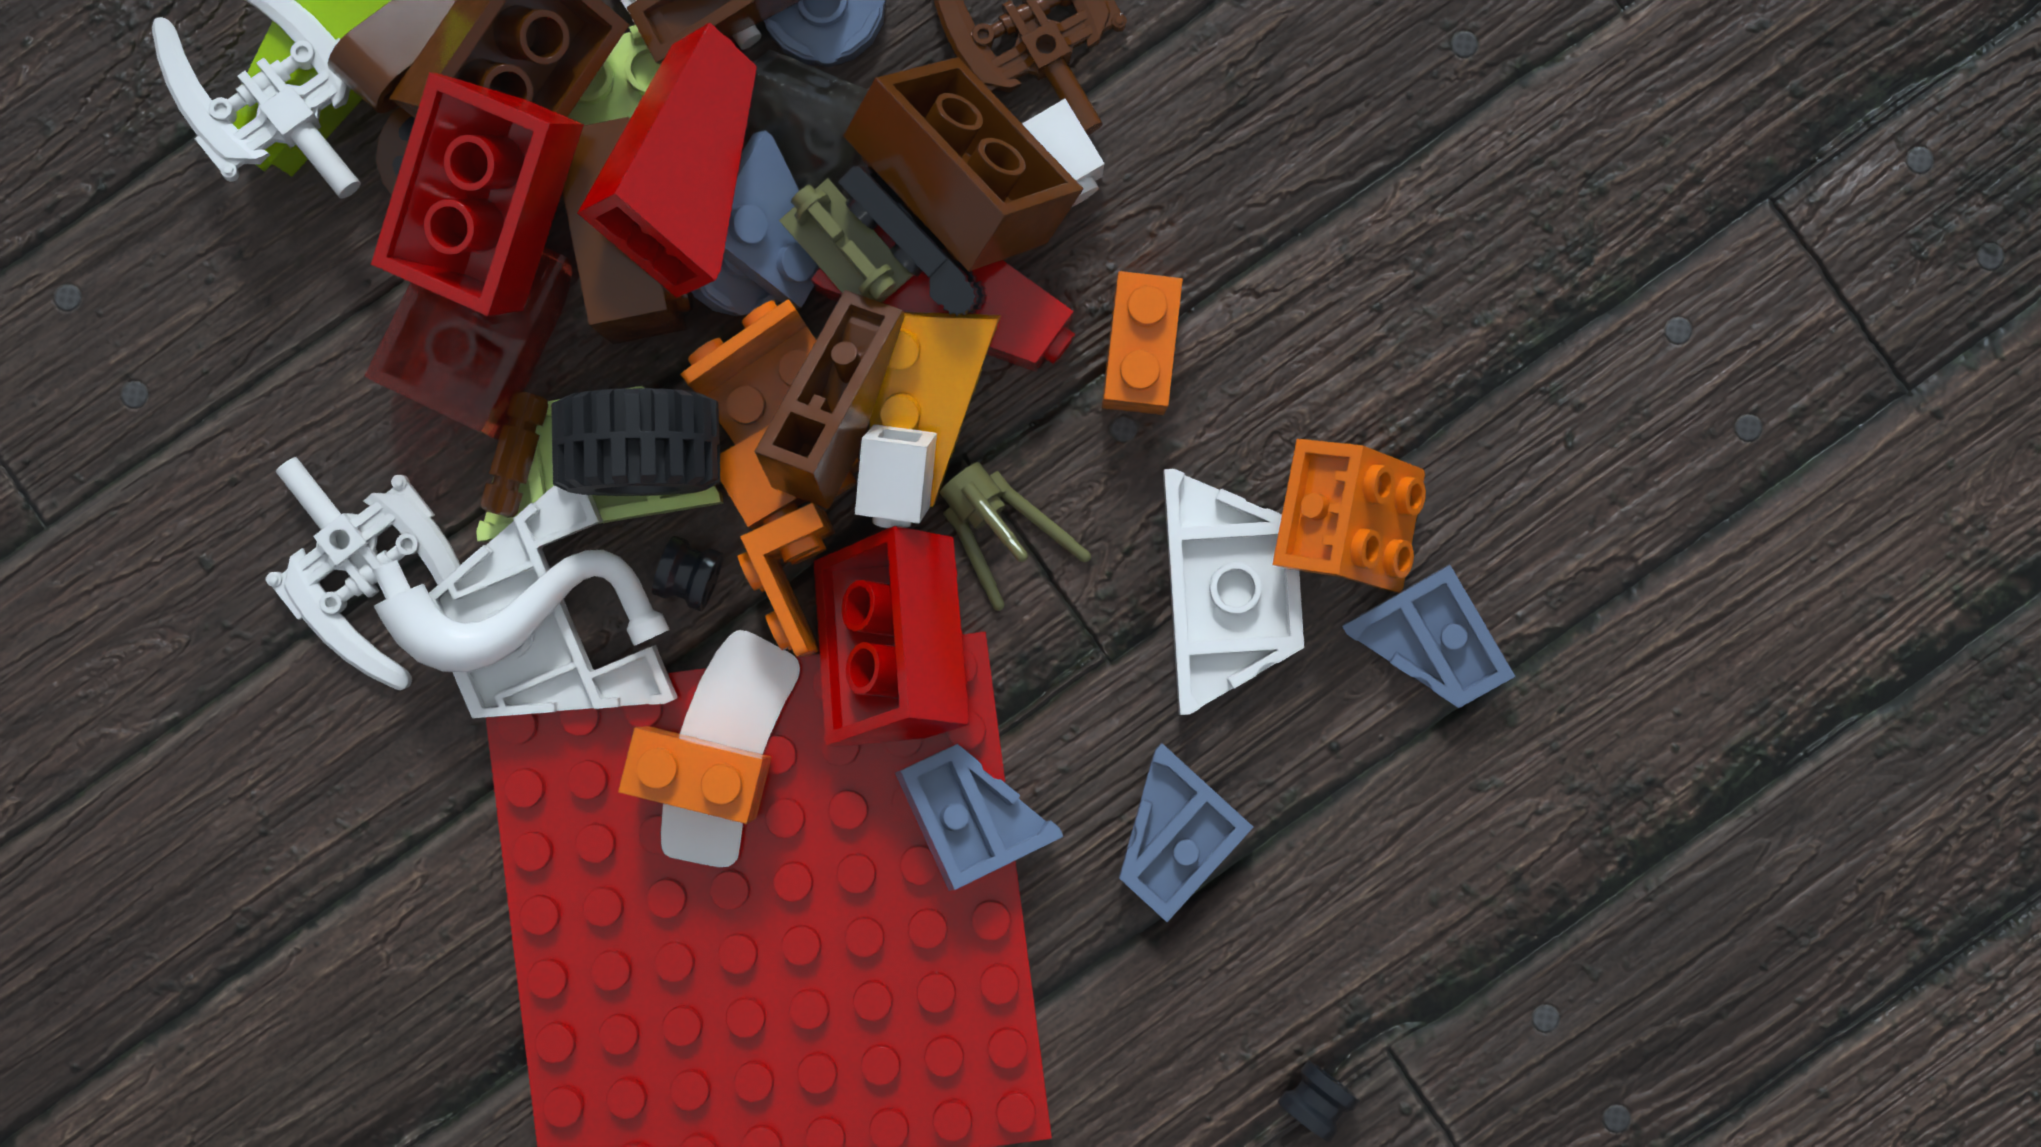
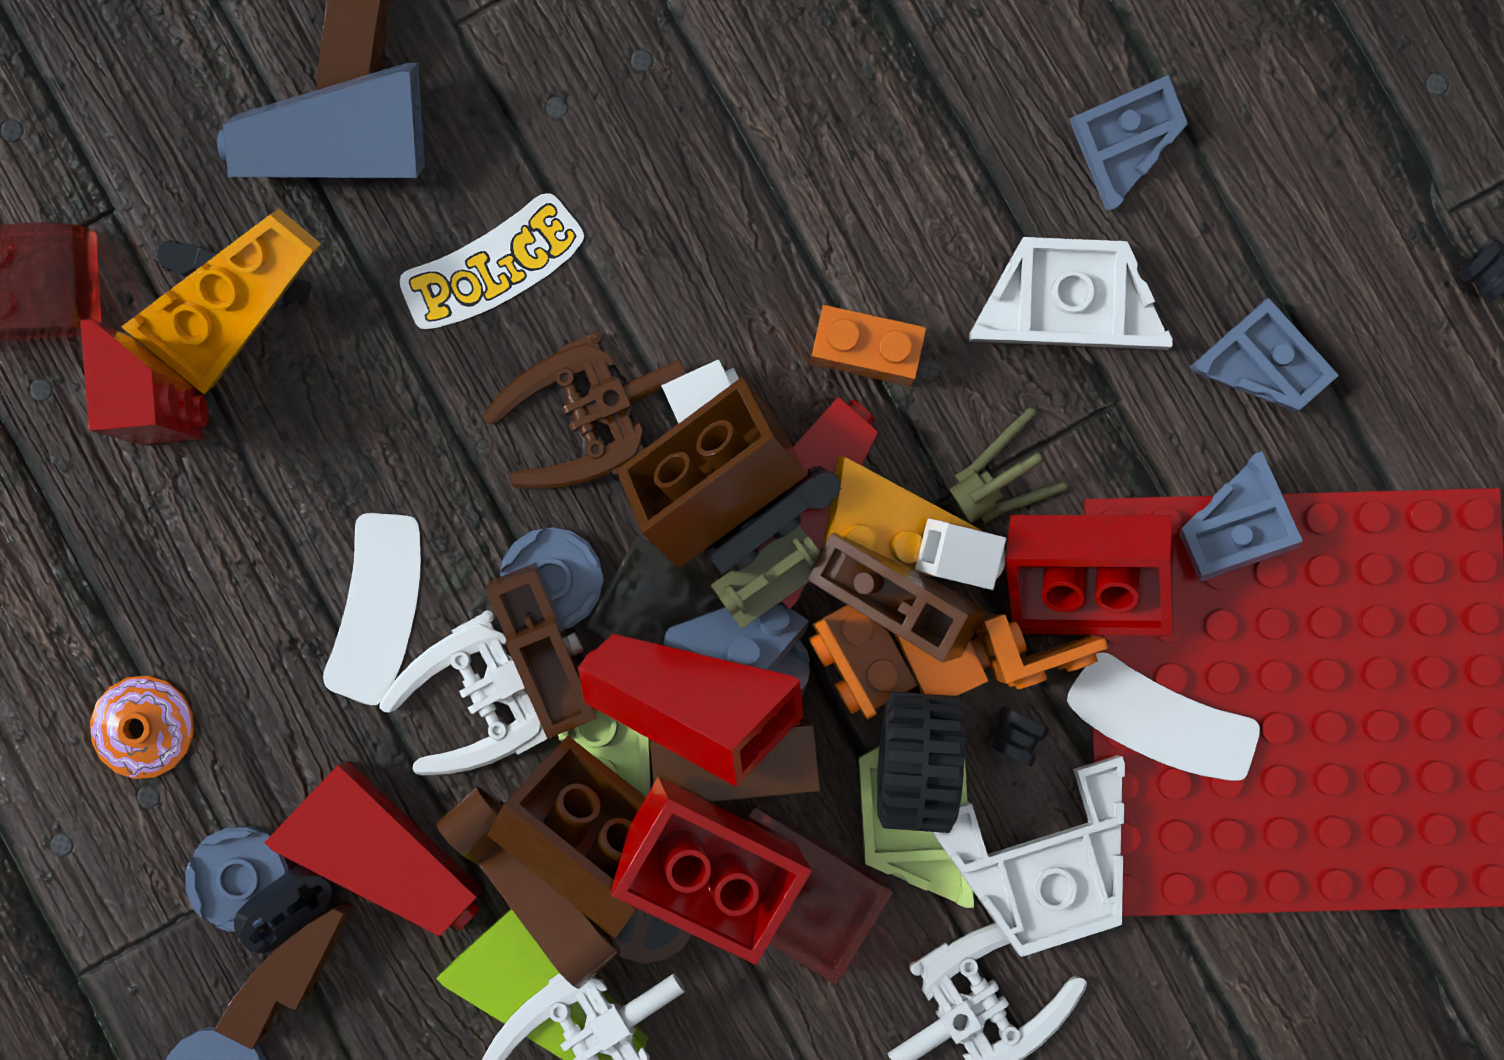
camera: 85 degrees left, 0 degrees up
(467, 647) = (1067, 922): white animal -> none
(514, 454) = (908, 868): reddish brown axle -> none
(695, 774) = (1188, 743): orange brick -> none
(1350, 514) = (1026, 193): orange bracket -> none

